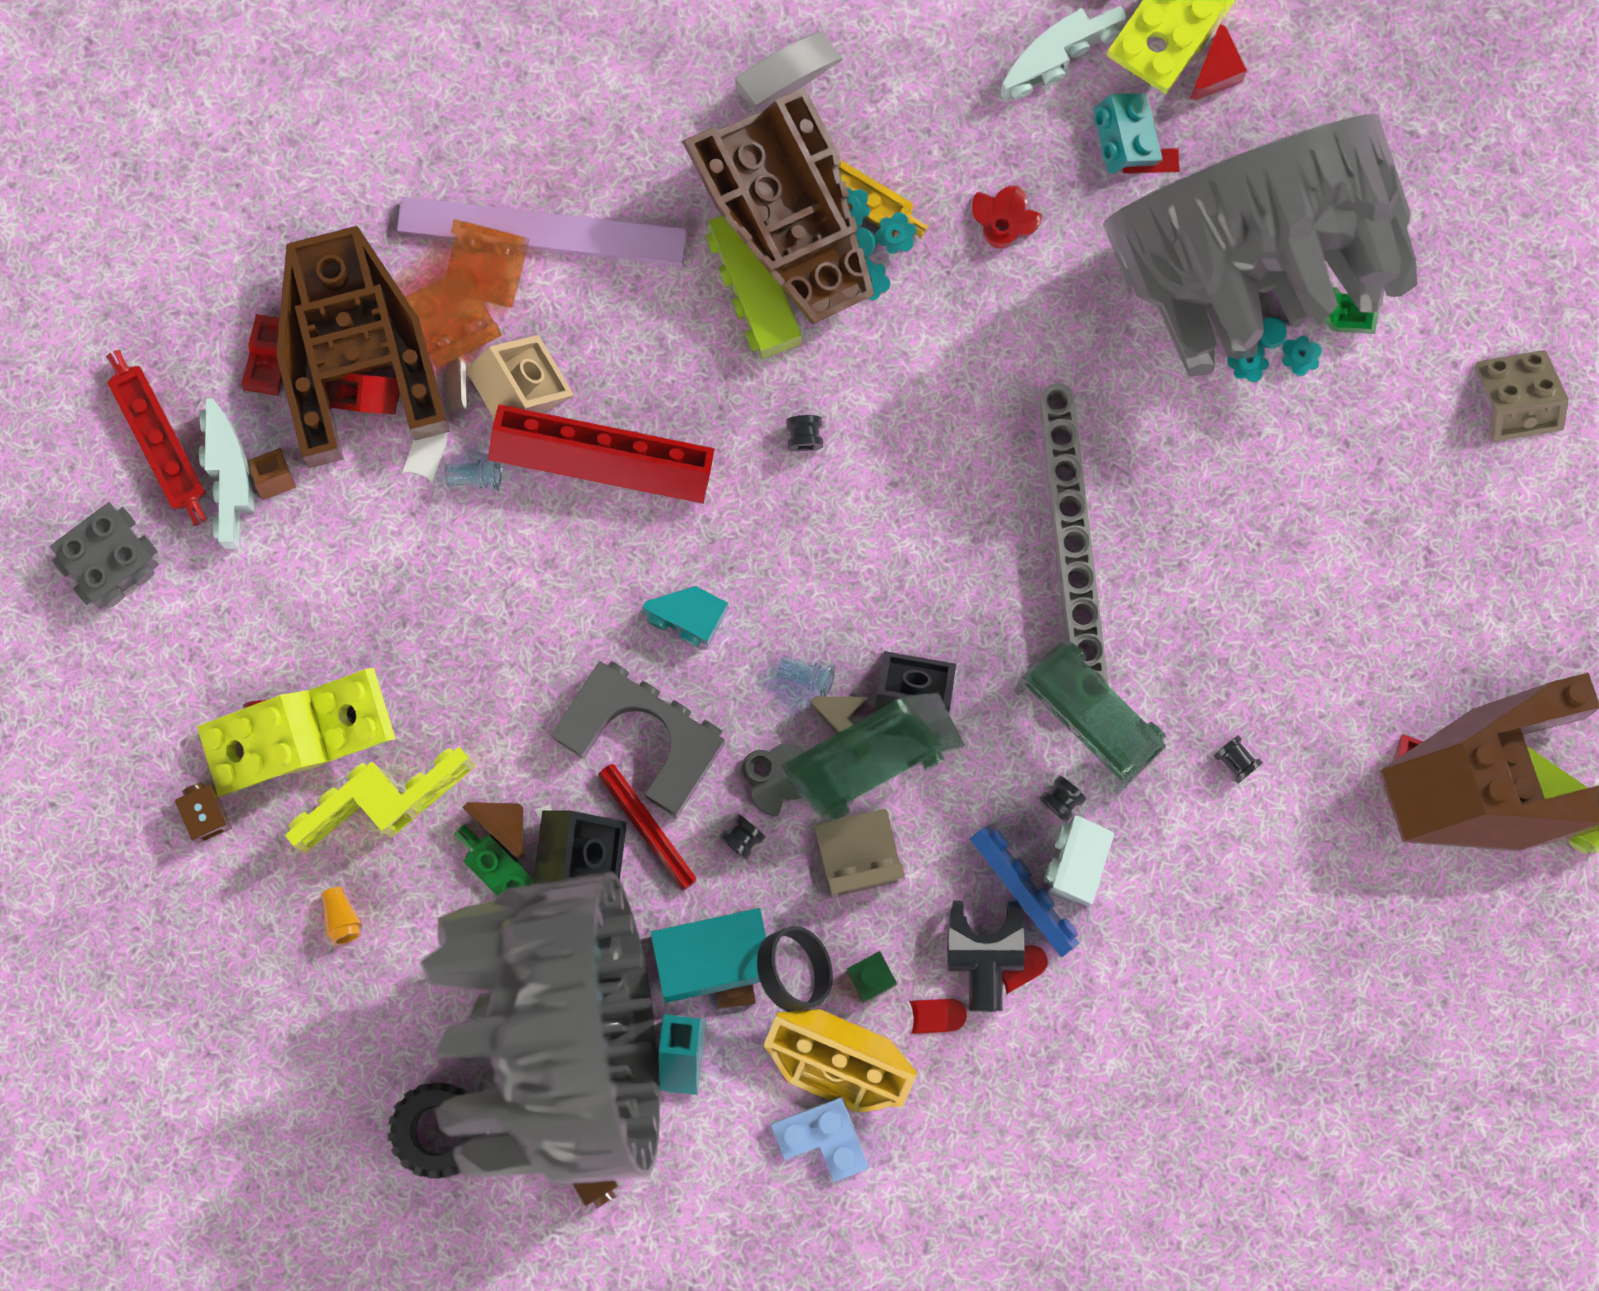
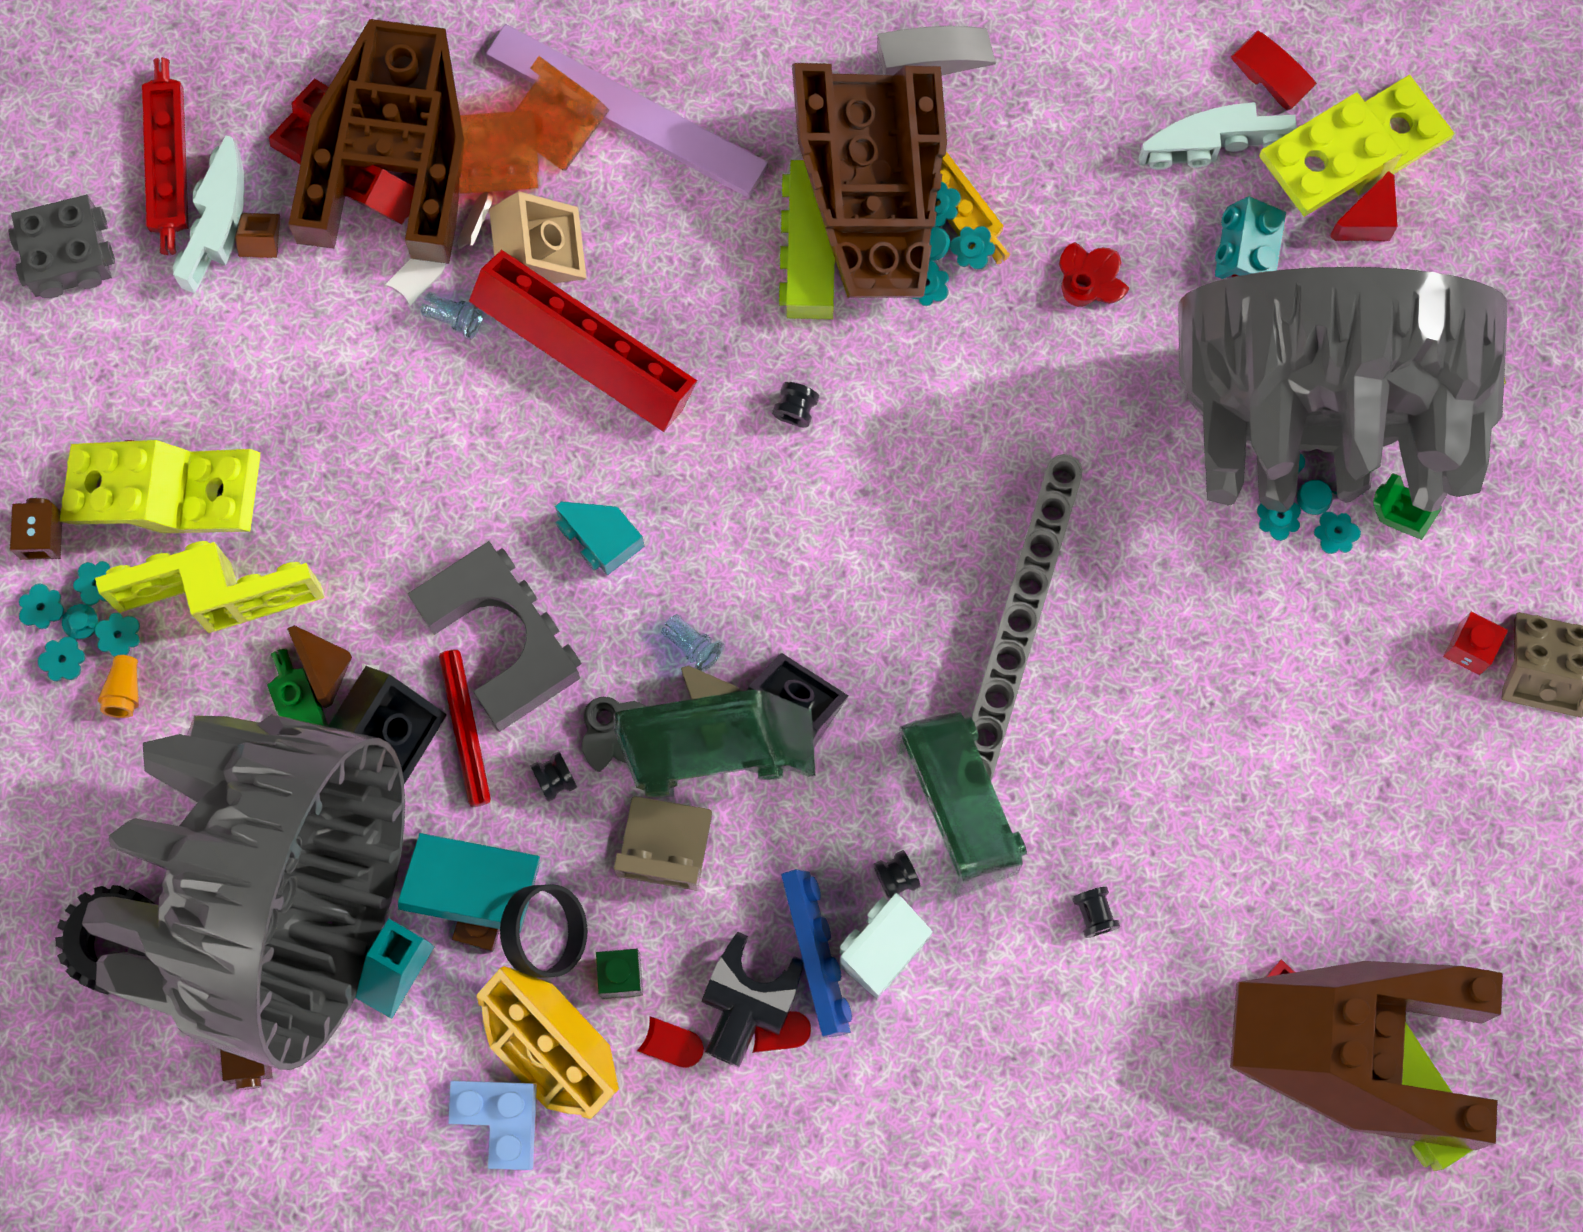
camera: 25 degrees right, 5 degrees down
(275, 876) = (77, 622): none -> teal plant
(1454, 404) = (1475, 643): none -> red brick

